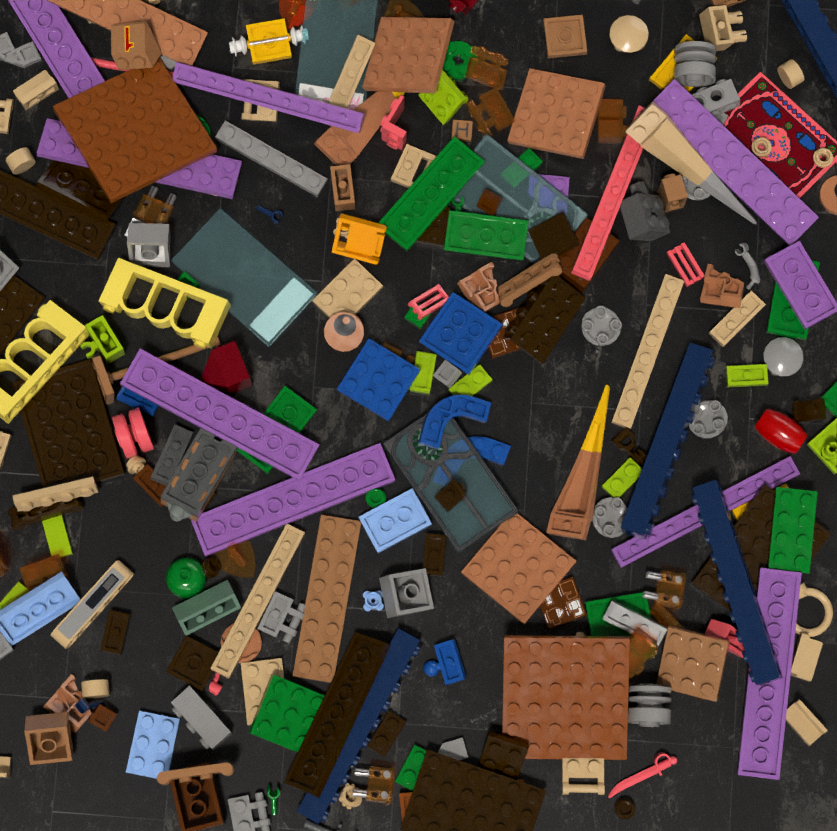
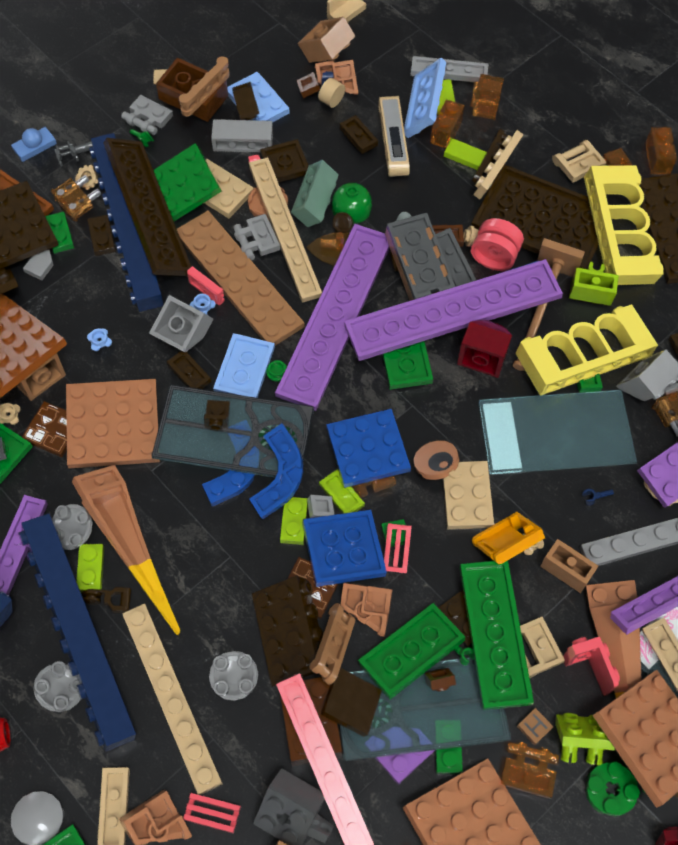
camera: 135 degrees right, 15 degrees down
(170, 741) = (245, 101): none -> dark brown slope
(358, 610) = (205, 285): none -> coral tile
(448, 662) = (102, 313): blue plate -> none
(474, 640) = (99, 334): none -> light blue plate
(487, 73) = (576, 799): clear orange plate -> none
(747, 375) = (56, 763): lime plate -> none

